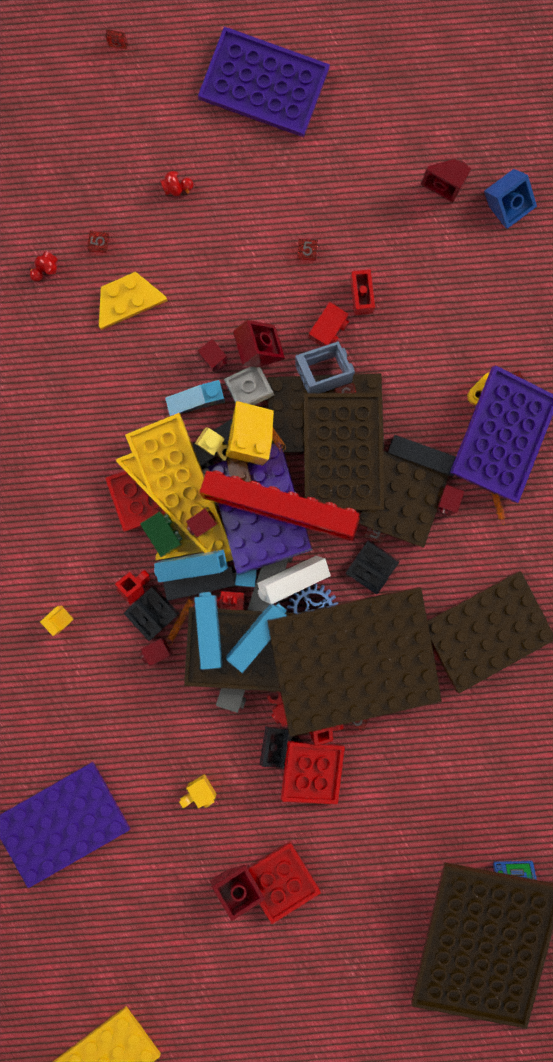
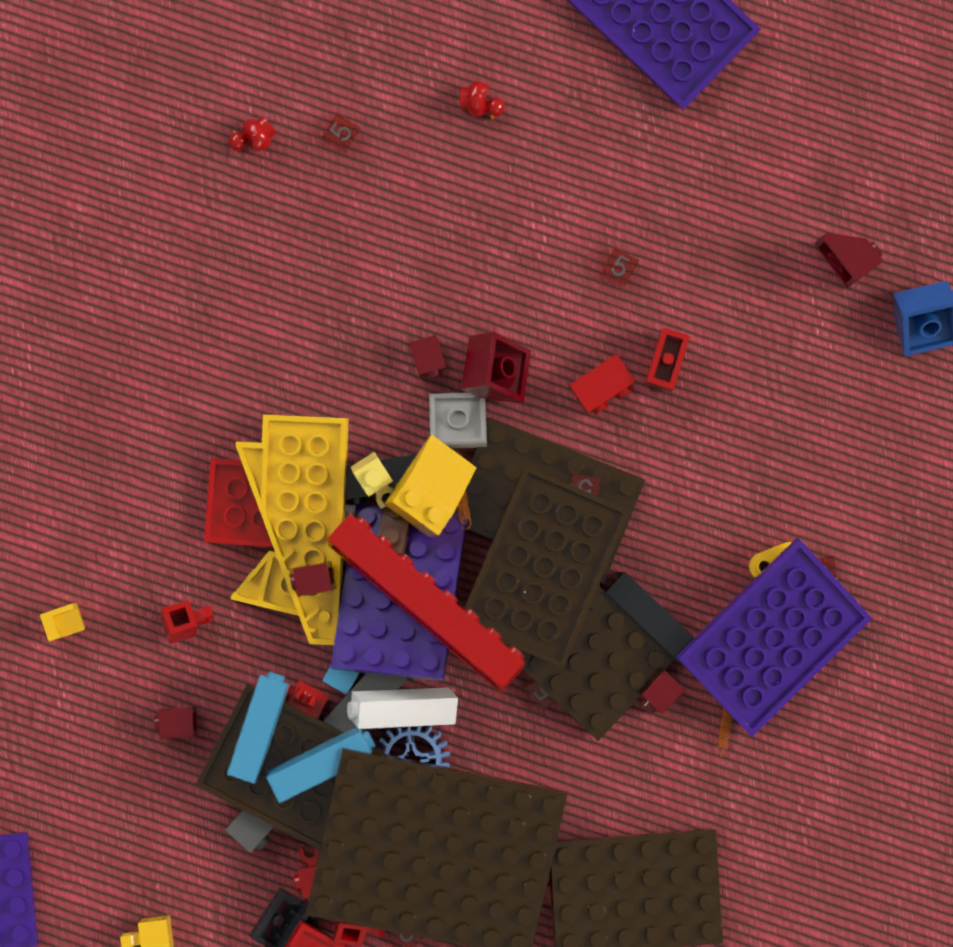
camera: 25 degrees right, 0 degrees up
(126, 299) = (346, 226): yellow wing -> none
(151, 613) = (193, 667): black slope -> none
(161, 533) = (254, 569): dark green brick -> none
(181, 621) = (227, 694): orange piece -> none
(190, 566) = (273, 629): dark azure brick -> none
(195, 398) = (378, 404): dark azure slope -> none
(200, 584) = (276, 656): black brick -> none
(321, 354) = (570, 419): sand blue window -> none
(372, 567) = (518, 736): black slope -> none

